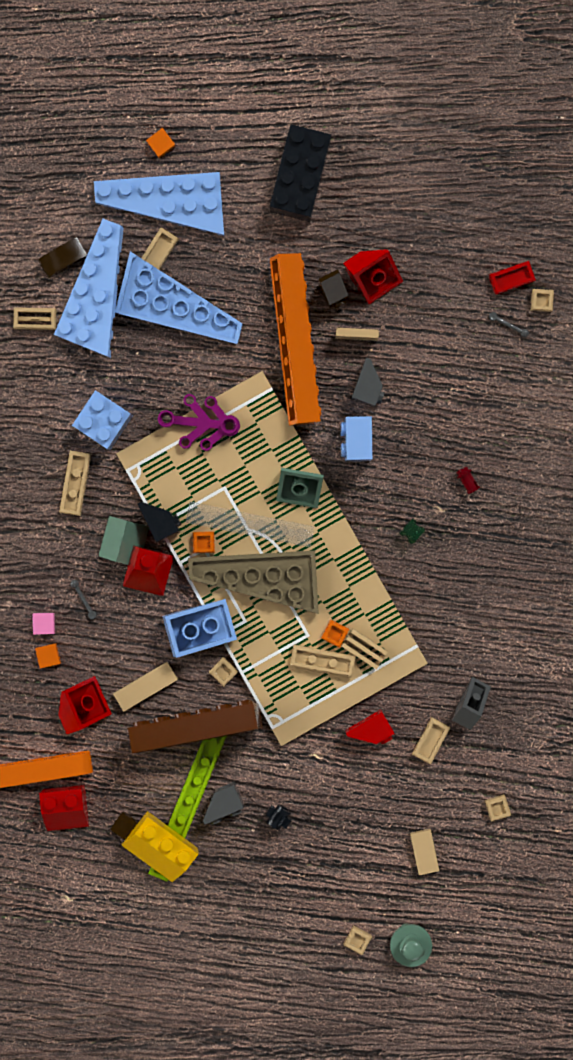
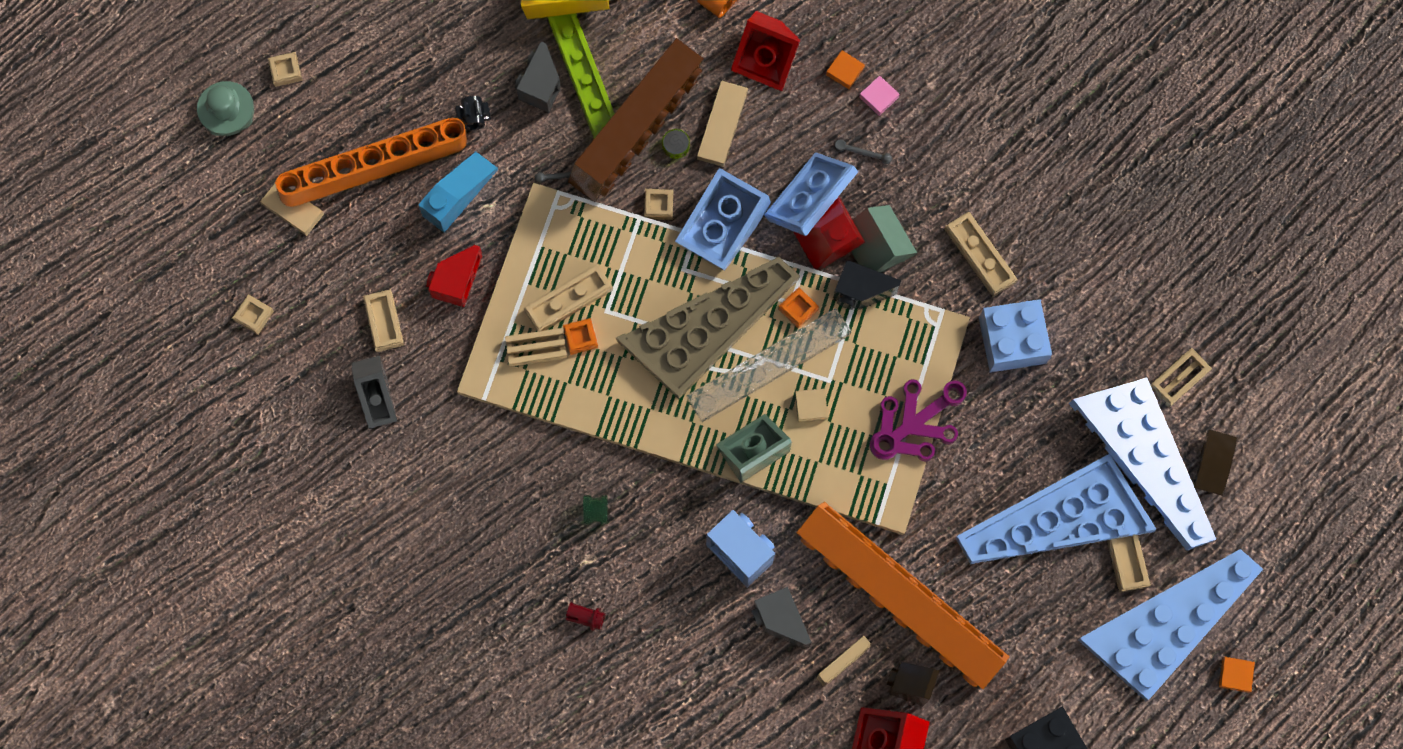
camera: 135 degrees right, 15 degrees down
(137, 599) = (810, 193): none -> light blue tile
(182, 698) = (676, 143): none -> tile
(247, 482) = (811, 405): none -> tan tile
(273, 746) = (541, 177): none -> dark grey hinge
(326, 779) = (456, 191): none -> dark azure slope
(367, 845) = (362, 172): none -> orange beam

